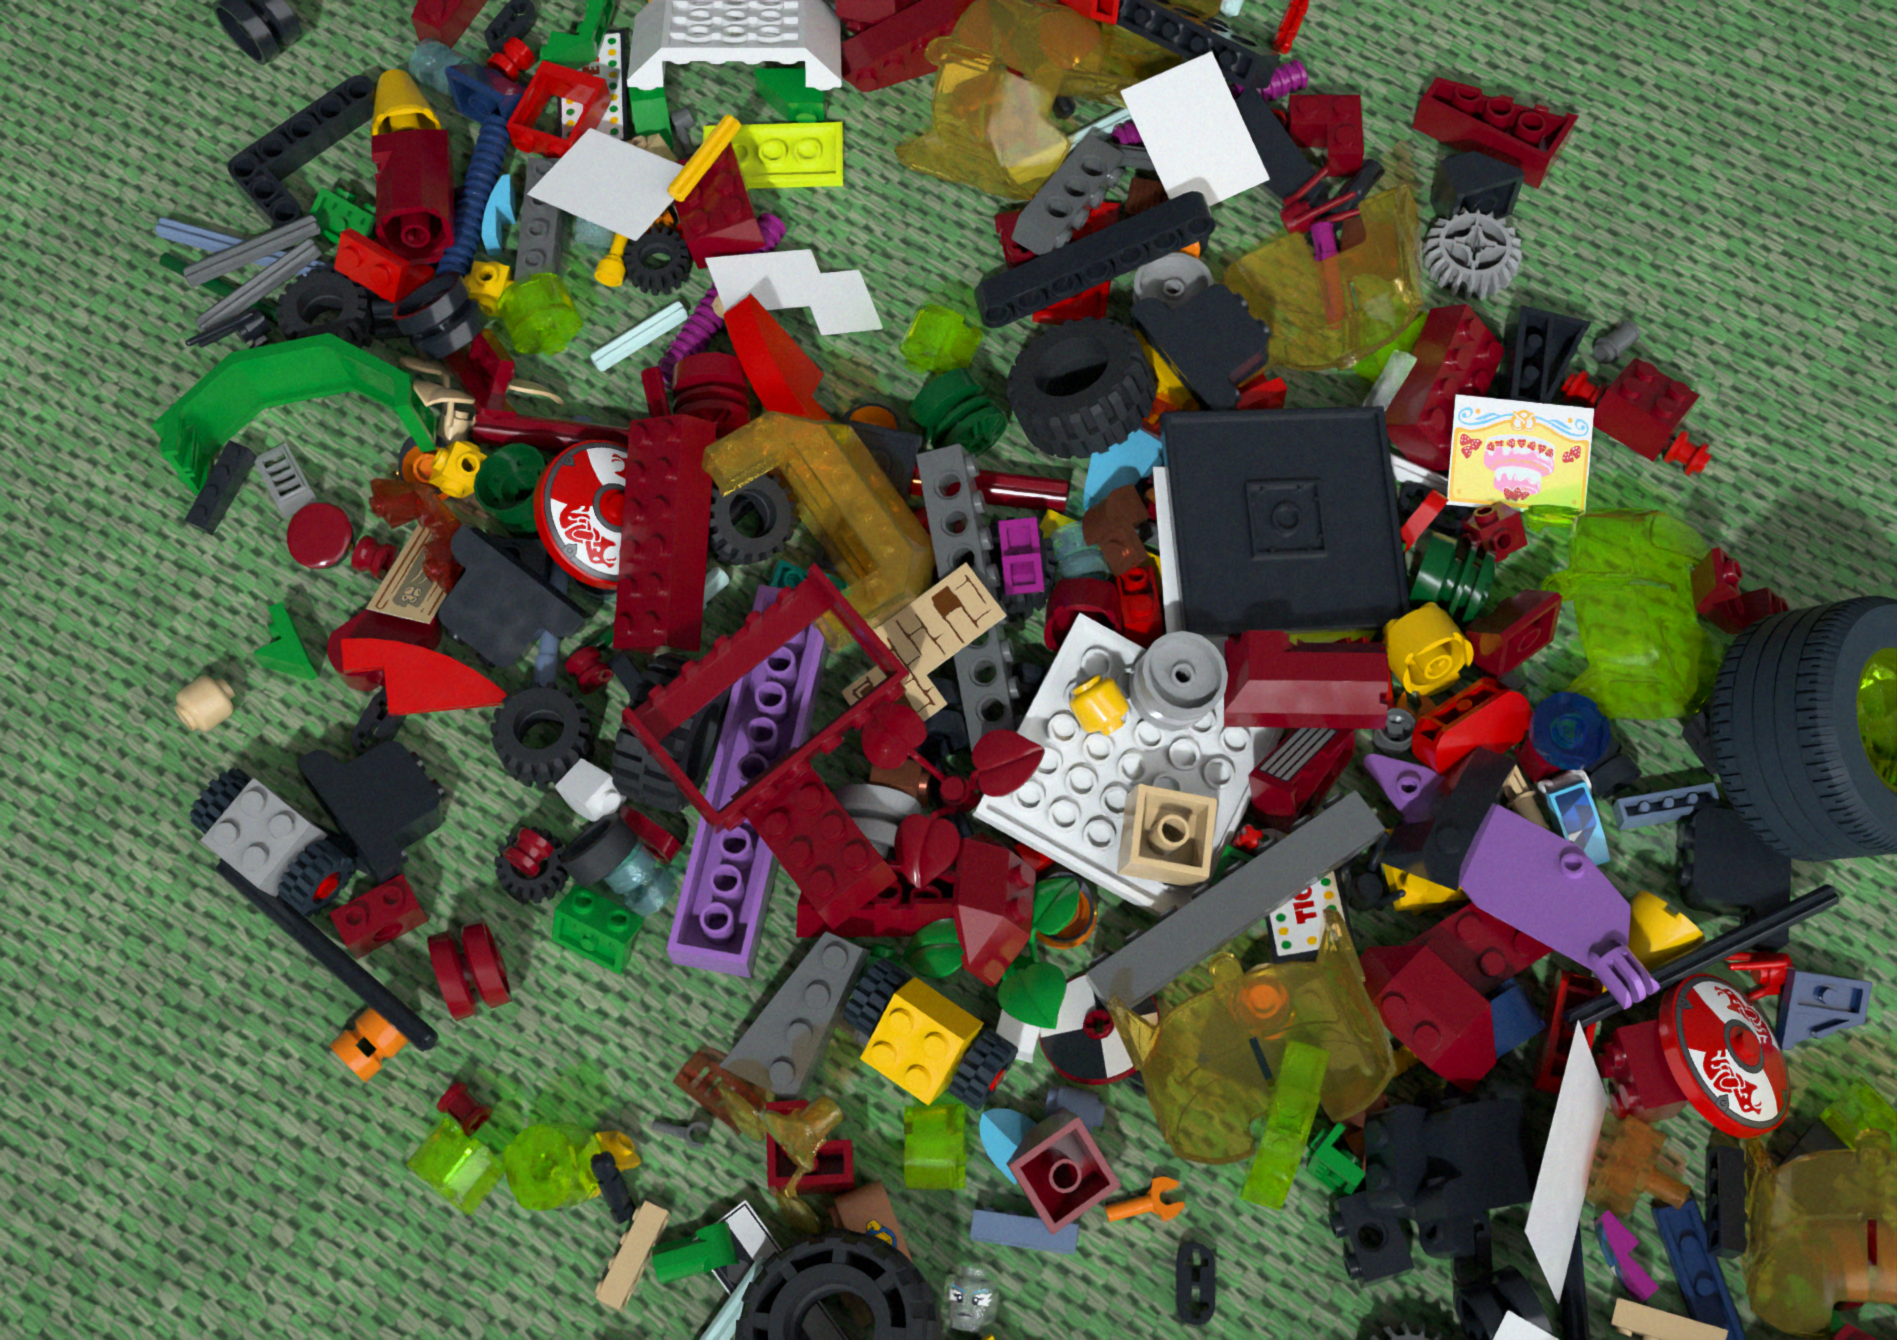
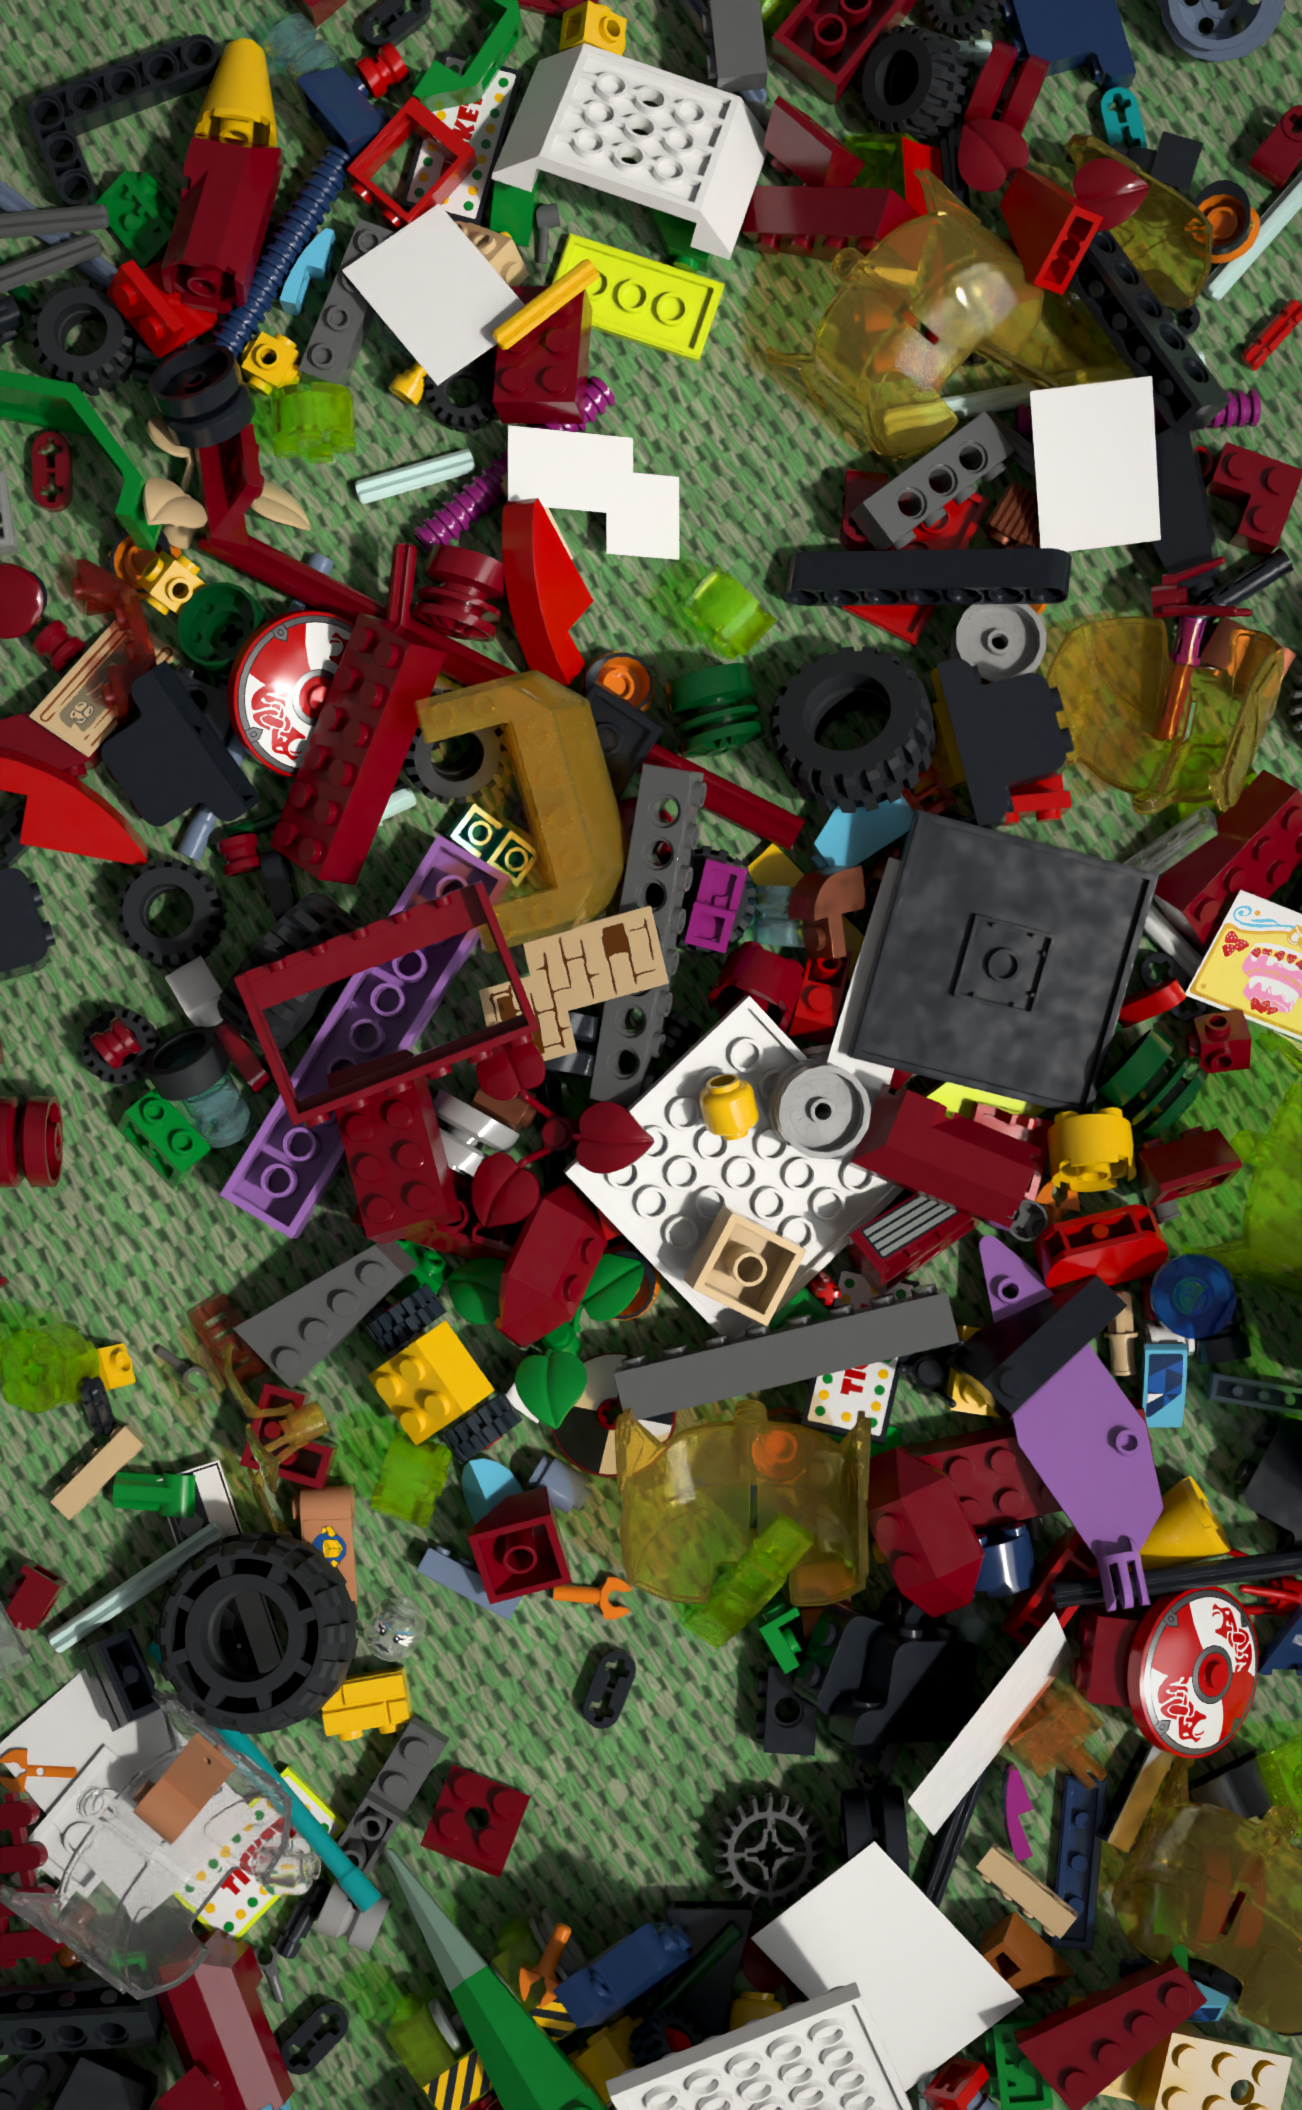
camera: 20 degrees right, 20 degrees up
(335, 427) = (42, 472): none -> dark red beam

